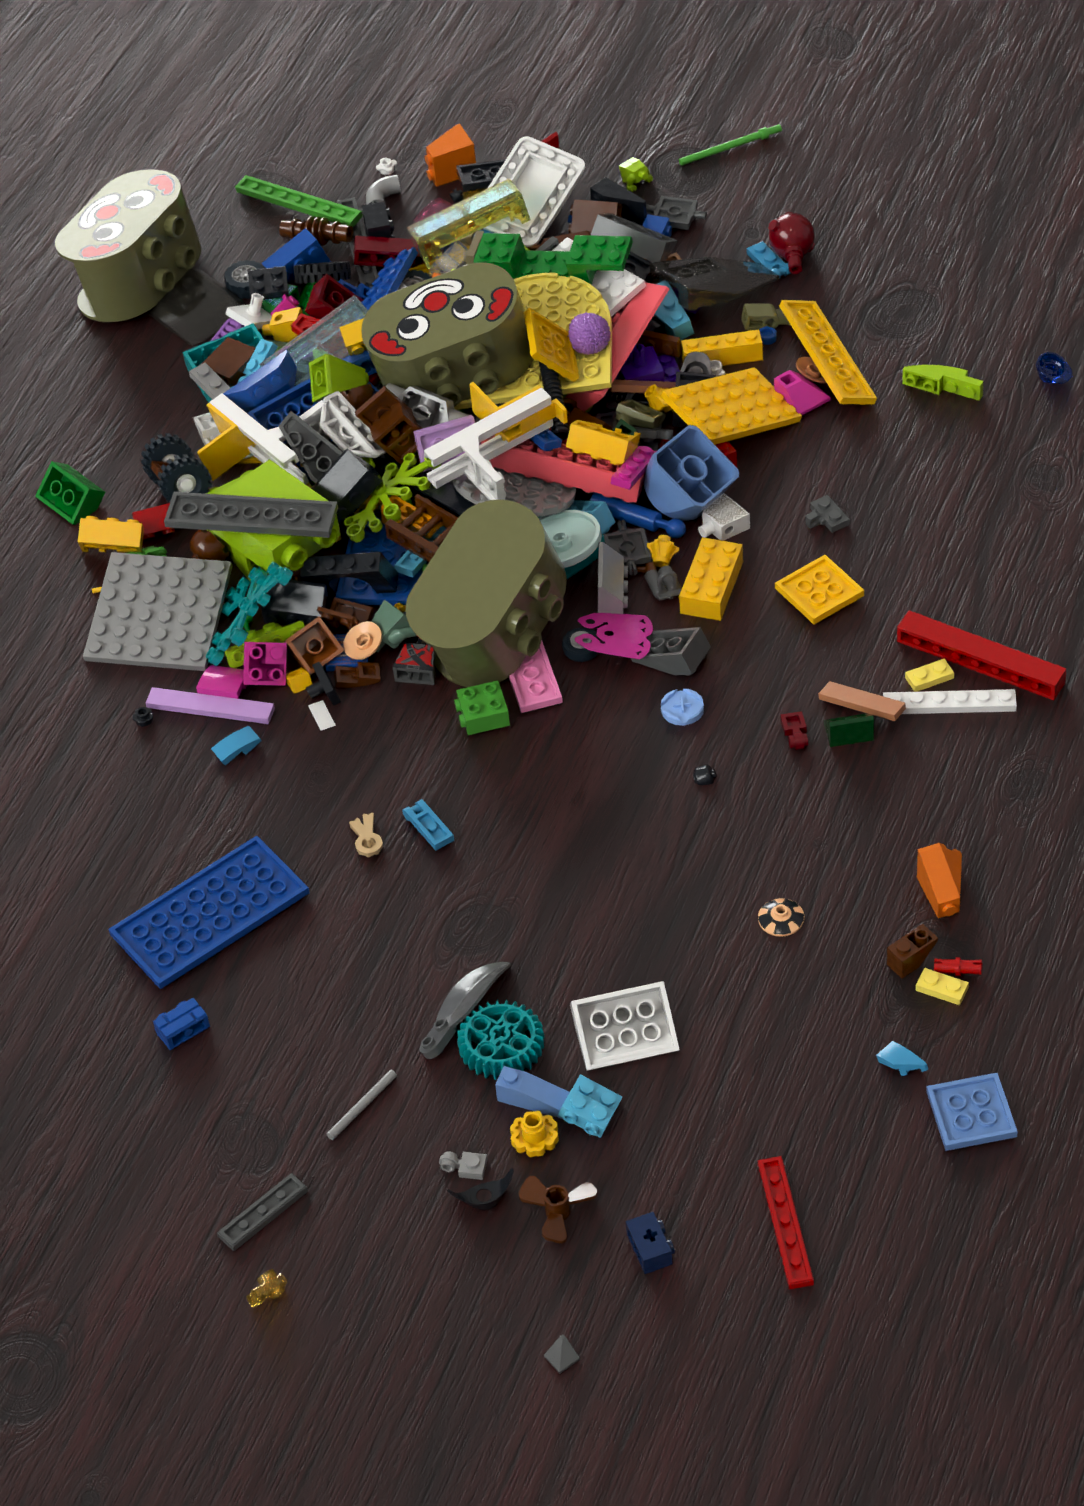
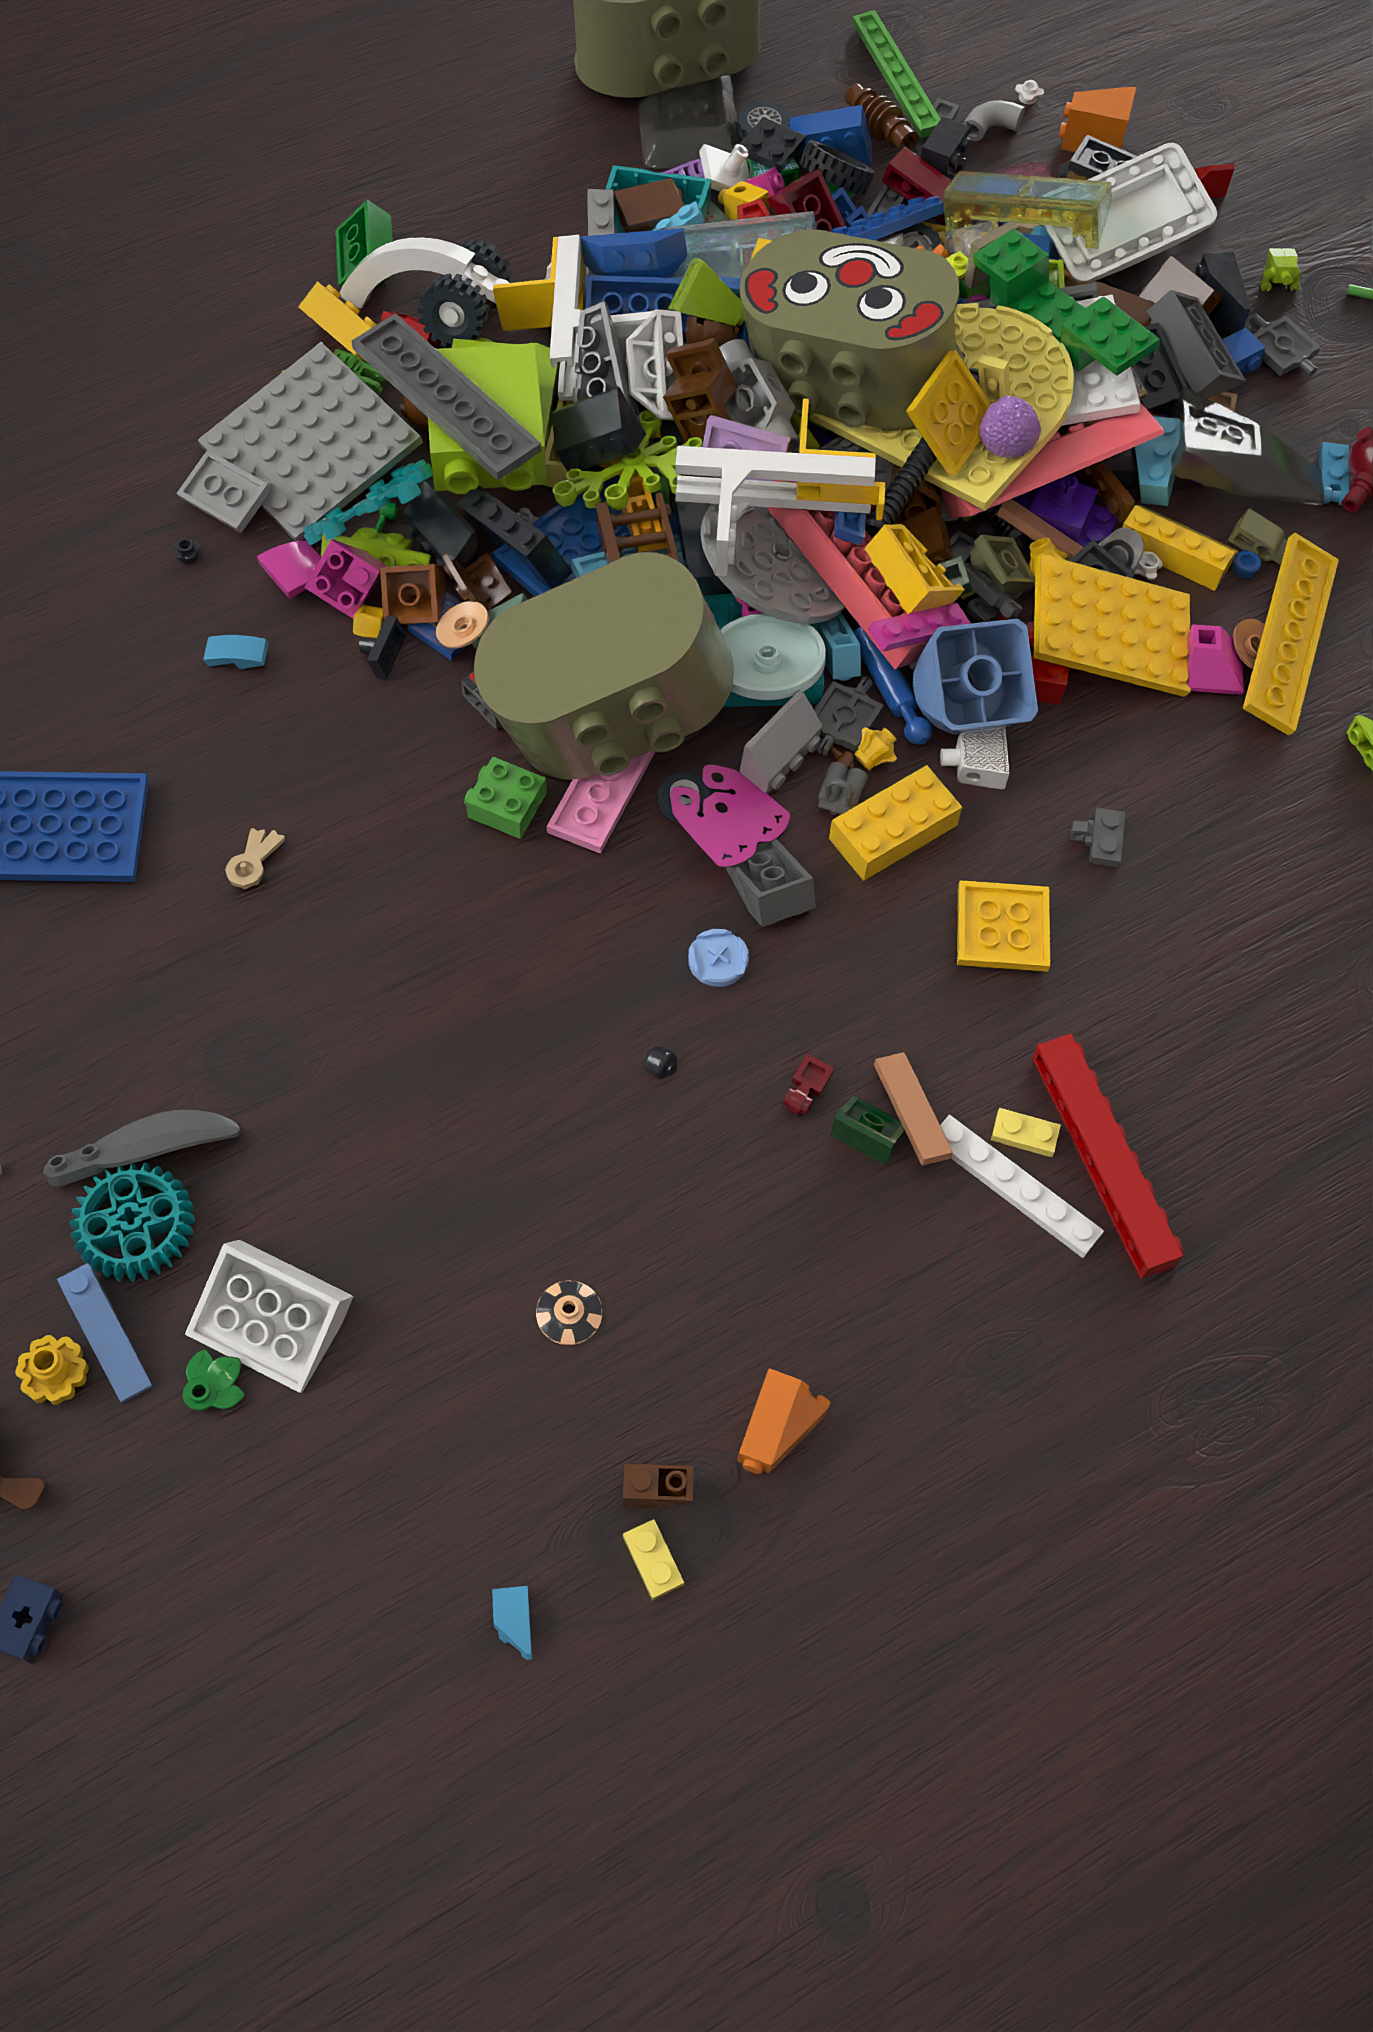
camera: 30 degrees right, 15 degrees up
(121, 470) = (415, 254): none -> white arch
(135, 669) = (224, 491): none -> light grey plate
(210, 705) = (259, 587): lavender tile -> none
(321, 715) = (353, 680): white sticker -> none
(363, 675) = (431, 662): reddish brown slope -> none
(428, 824) = (322, 895): dark azure plate -> none
(557, 313) = (994, 377): none -> light yellow plate
(590, 1106) = (134, 1387): medium azure plate -> none
(627, 1078) = (216, 1378): none -> green plate
(785, 1222) = (190, 1723): red tile -> none
(958, 966) = (692, 1550): red pin -> none
(971, 1111) = (522, 1763): medium blue plate -> none

